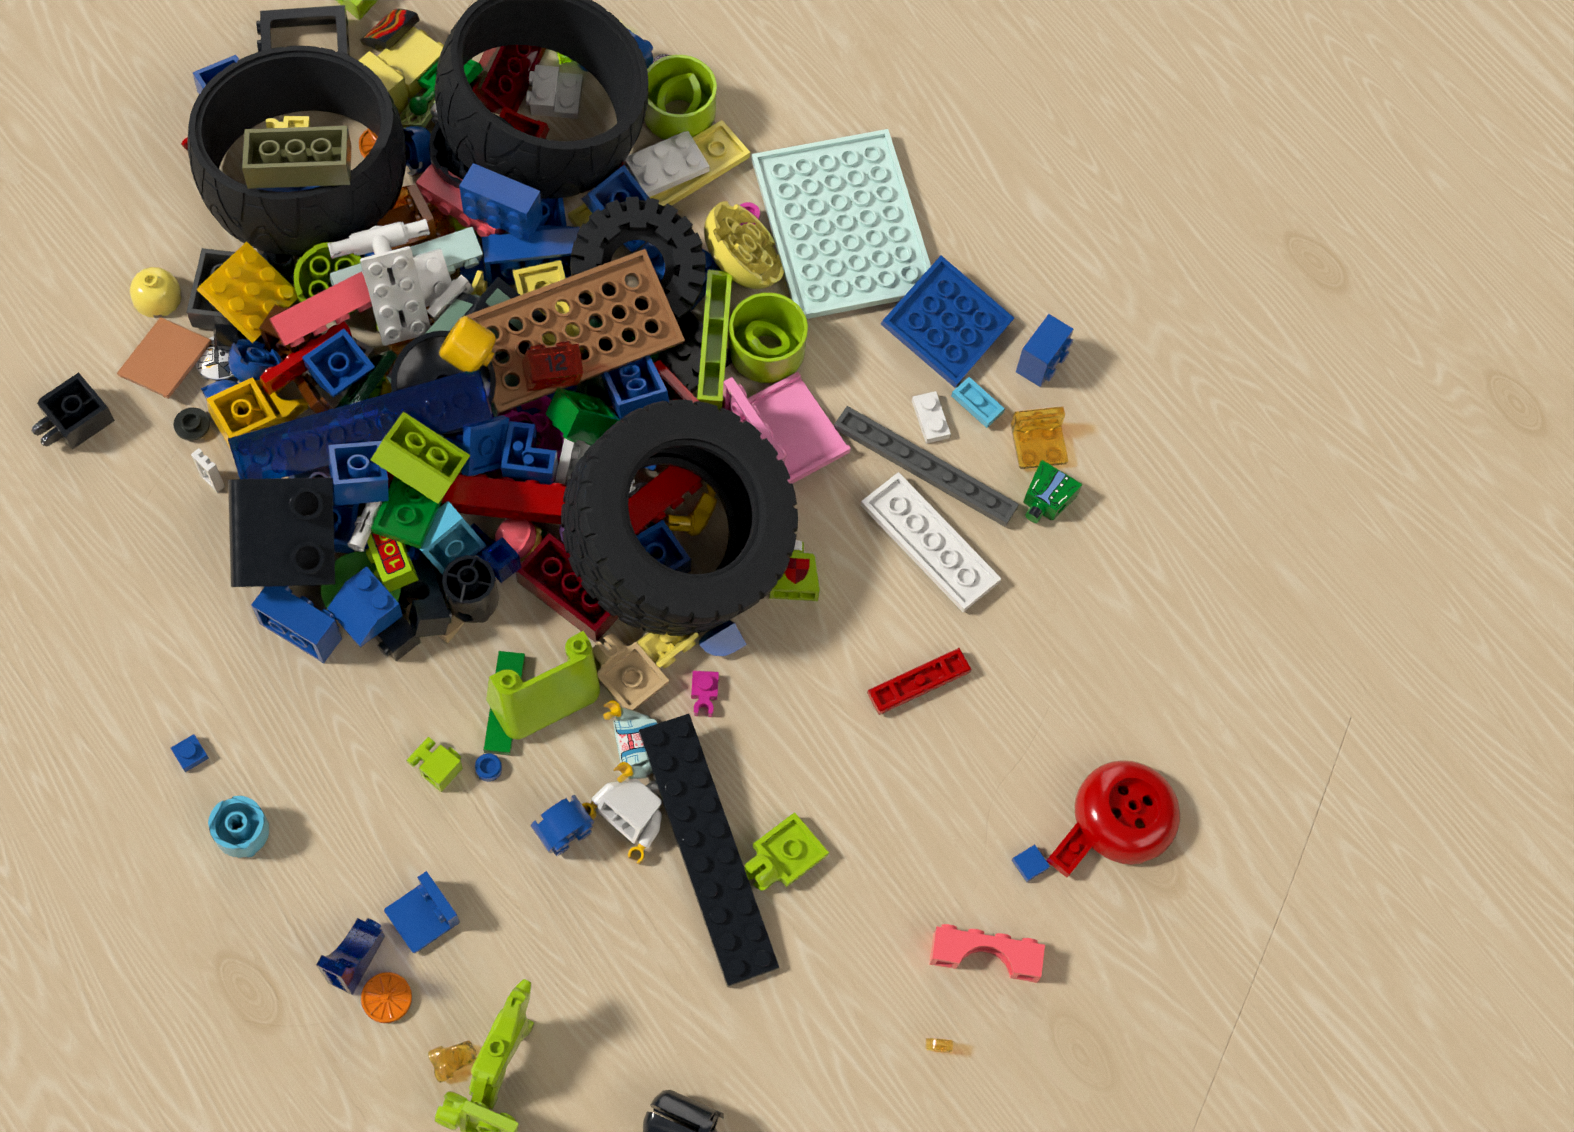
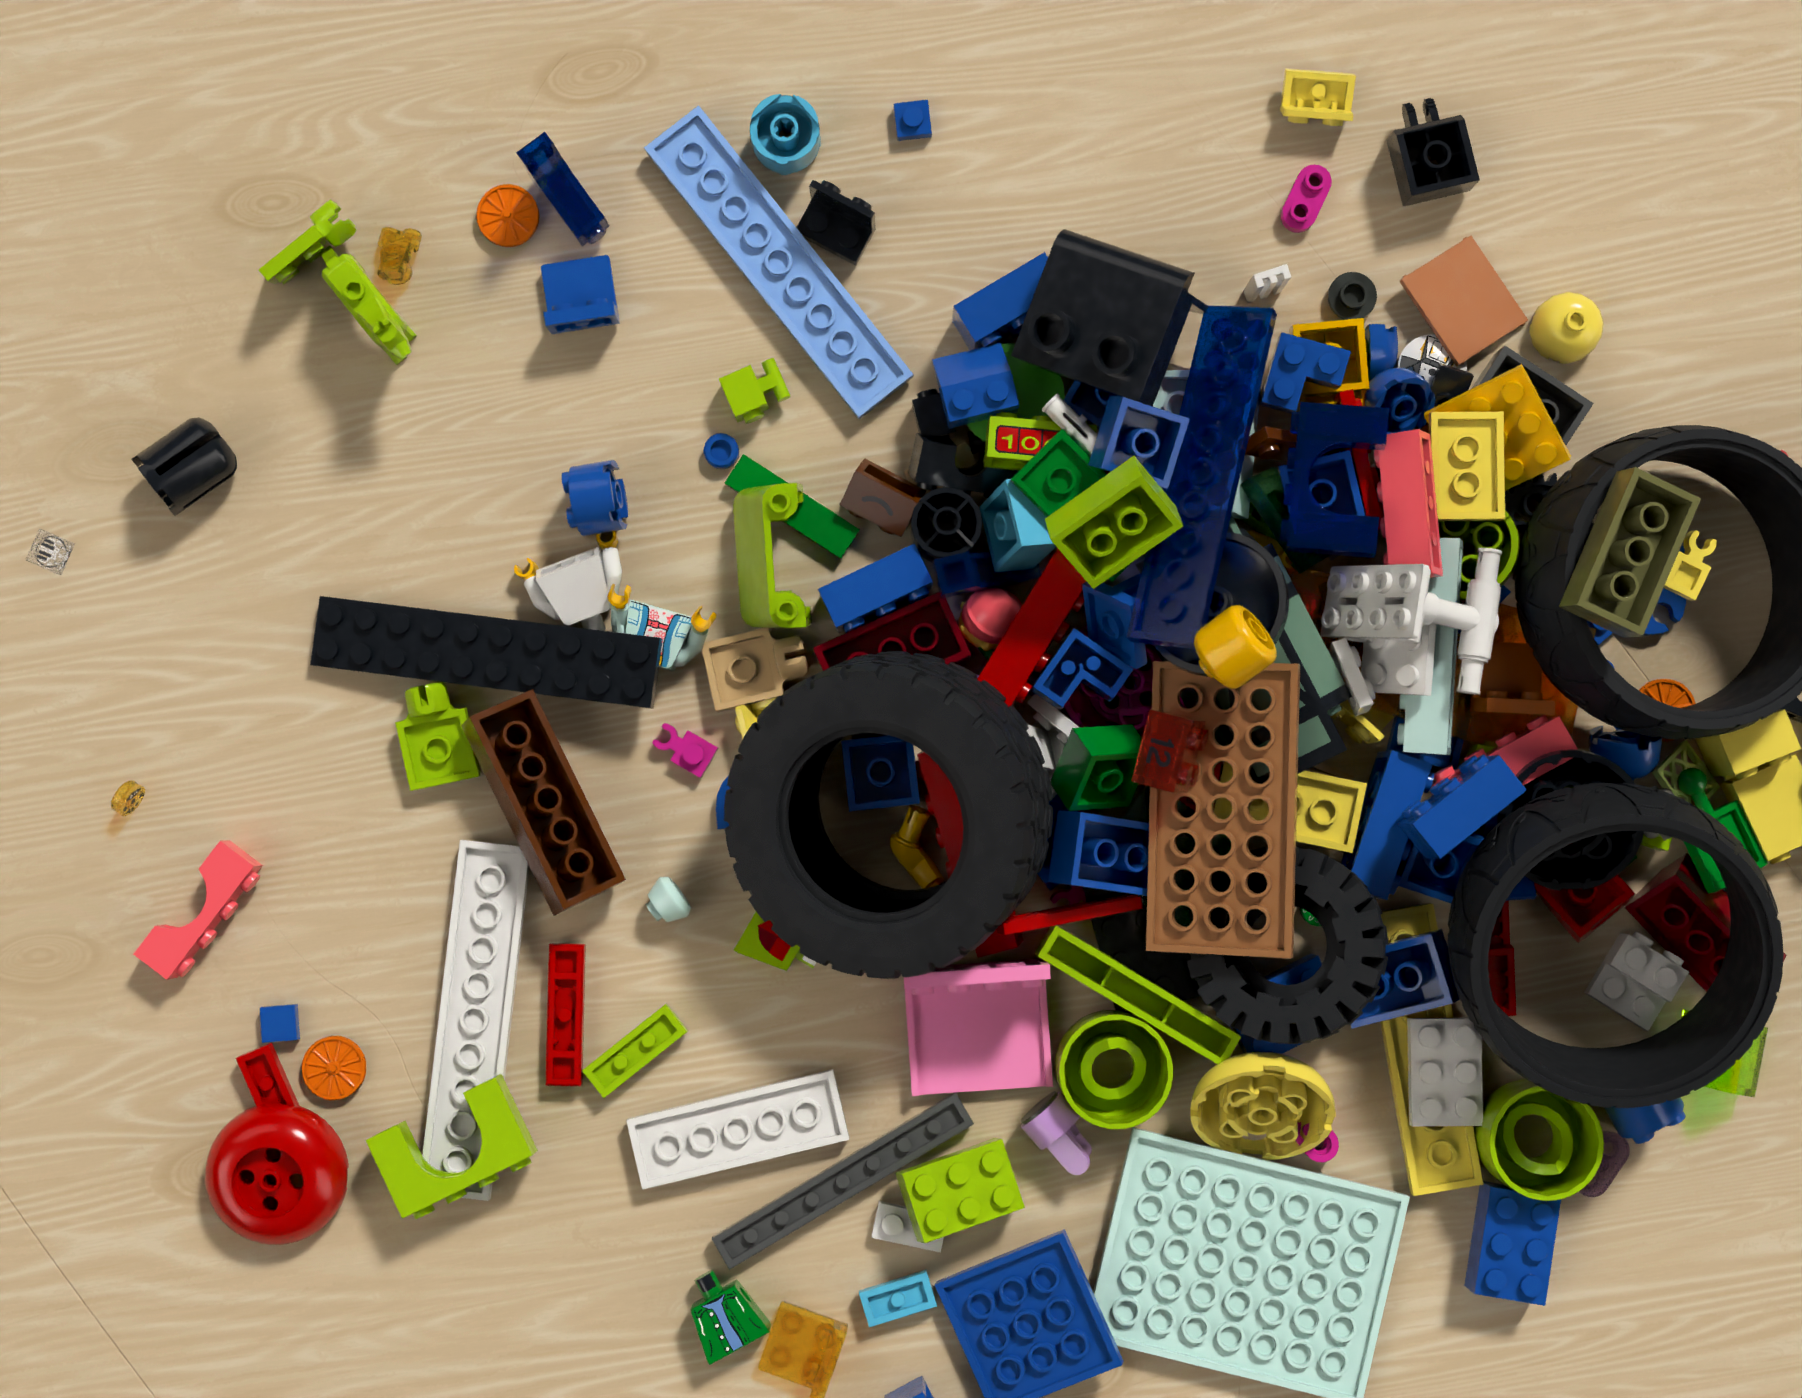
camera: 125 degrees right, 20 degrees up
(60, 500) = (1317, 96): none -> light yellow bracket
(134, 480) = (1306, 197): none -> dark pink plate
(254, 414) = (1301, 361): none -> blue brick
(277, 289) = (1468, 465): none -> light yellow plate
(288, 764) = (837, 222): none -> black bracket
(302, 377) = (1320, 430): none -> clear blue arch
(333, 794) = (778, 262): none -> light blue plate
(470, 642) = (881, 498): none -> reddish brown brick
(534, 614) = (877, 589): none -> blue brick
(750, 91) = (1511, 1245): none -> blue brick
(788, 756) = (543, 802): none -> reddish brown brick
(810, 651) = (667, 901): none -> light aqua cone
(822, 359) = (1053, 1127): none -> lavender piece
(891, 392) = (959, 1190): none -> lime brick
(917, 626) = (635, 1050): none -> lime plate
(953, 736) = (475, 999): none -> white plate
(1026, 670) = (419, 1185): none -> lime arch
(1038, 813) = (333, 1067): none -> orange wheel

